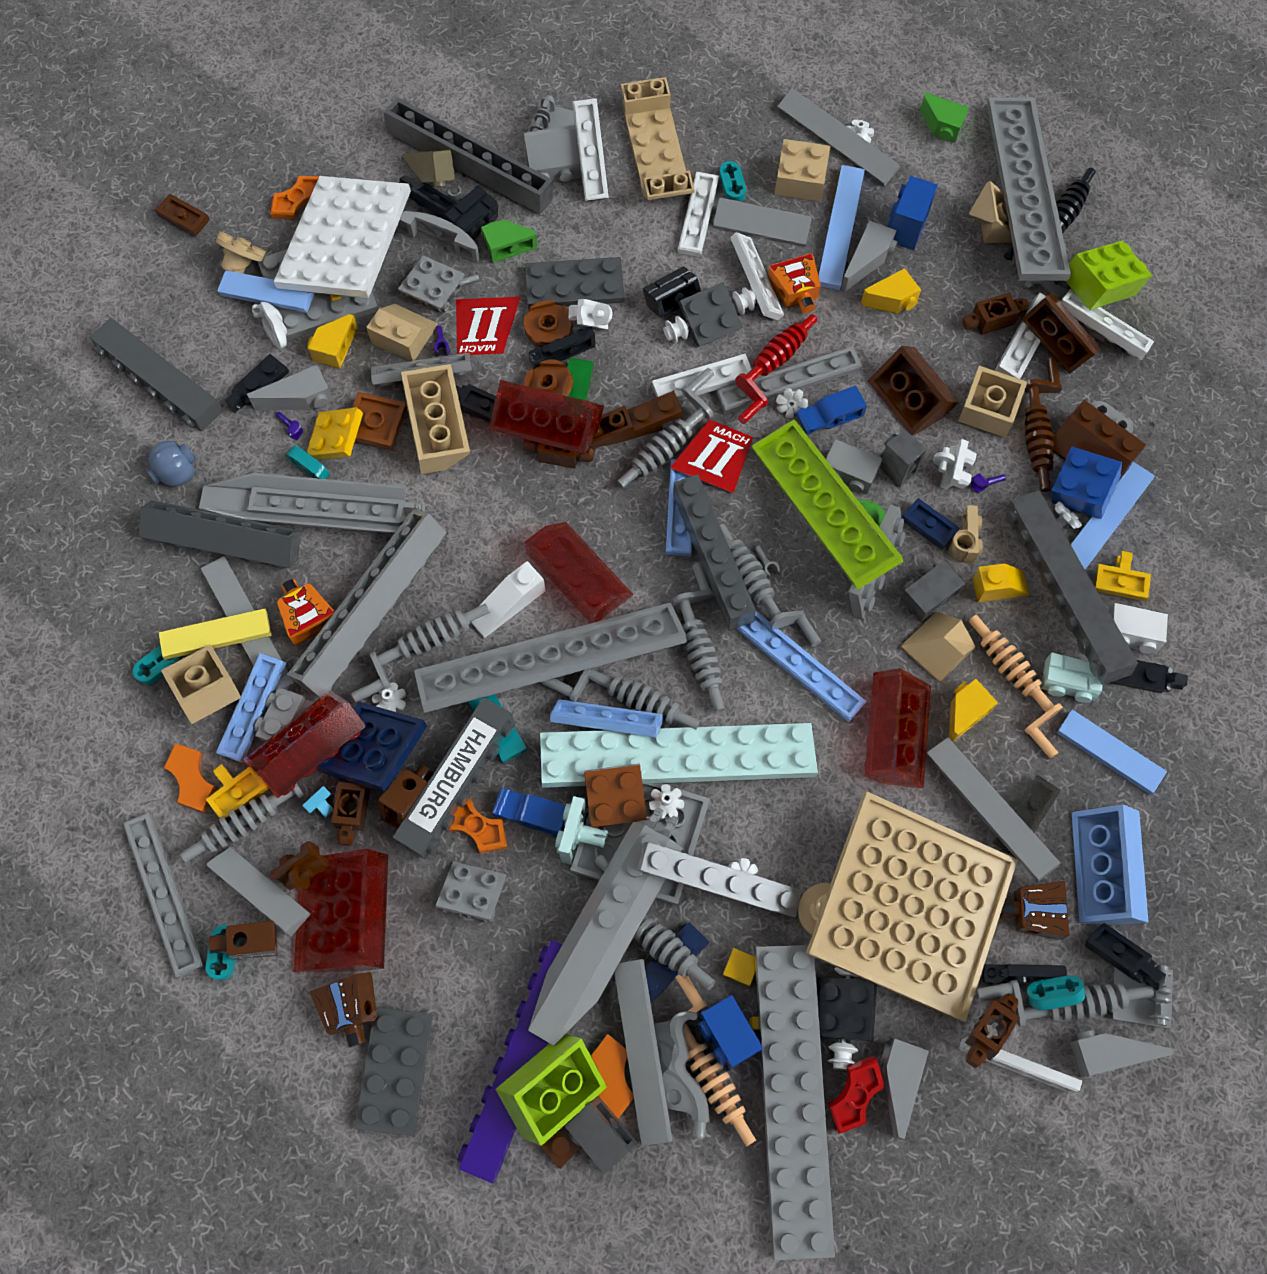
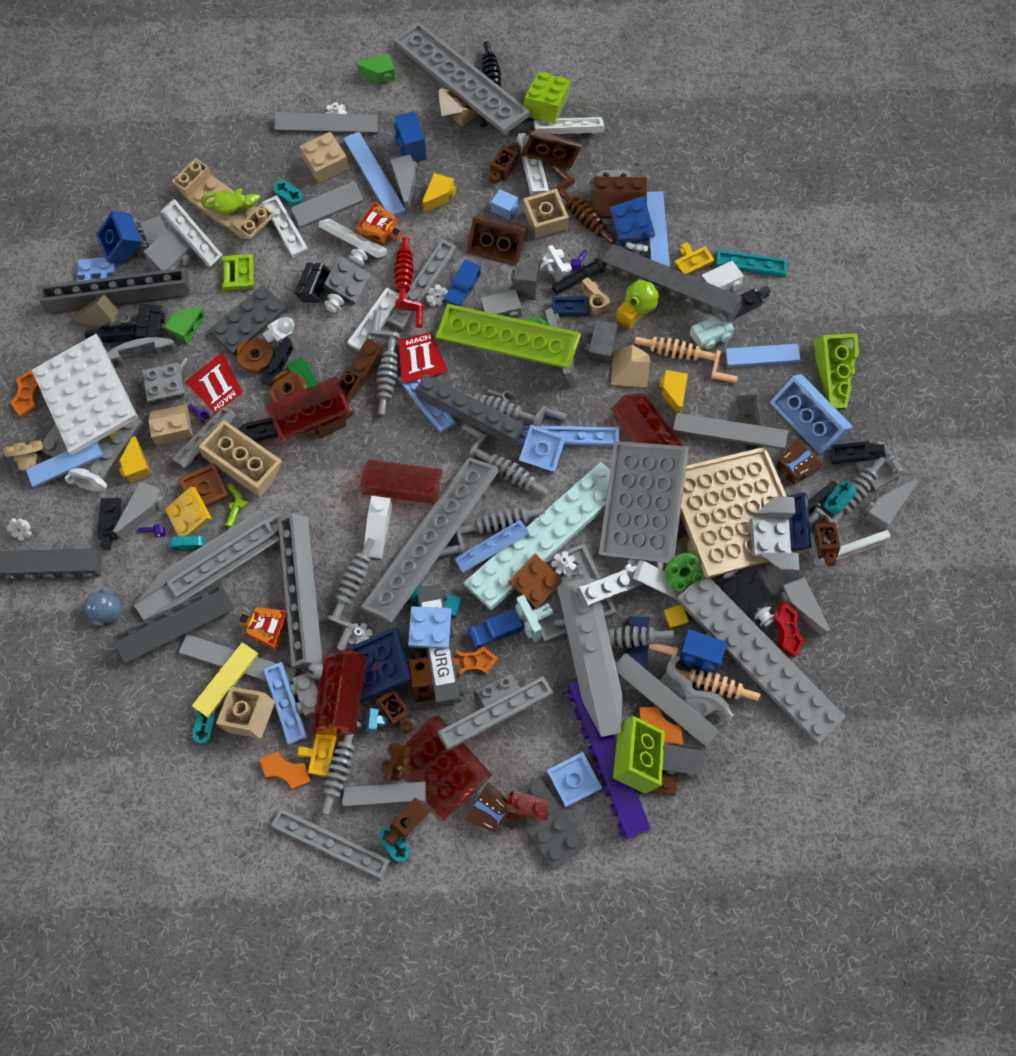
camera: 40 degrees left, 0 degrees up
(169, 324) = (19, 528): none -> white plant
(305, 698) = (315, 670): none -> light grey hinge
(384, 1036) = (528, 805): none -> clear red plate
(388, 464) = (238, 505): none -> lime piece
(441, 903) = (495, 713): none -> light grey tile
(456, 751) = (430, 627): none -> light blue plate
(464, 1051) = (574, 779): none -> light blue plate
(474, 121) = (95, 268): none -> light blue plate
(518, 104) = (118, 237): none -> blue brick
(612, 231) = (243, 272): none -> lime plate
(657, 146) = (228, 202): none -> lime animal
(753, 909) = (654, 578): none -> white tile
(757, 656) = (542, 448): none -> light blue plate
(788, 923) = (683, 571): none -> bright green plate
(812, 807) = (643, 501): none -> light grey plate
(930, 970) = (772, 534): none -> light grey piece
(955, 359) = (505, 204): none -> light blue brick
(978, 980) = (799, 523): none -> dark blue plate
(982, 499) = (573, 279): none -> black pin
(1019, 574) = (642, 296): none -> lime plant
(1192, 833) = (836, 363): none -> lime wedge
(1194, 637) = (753, 263): none -> teal tile

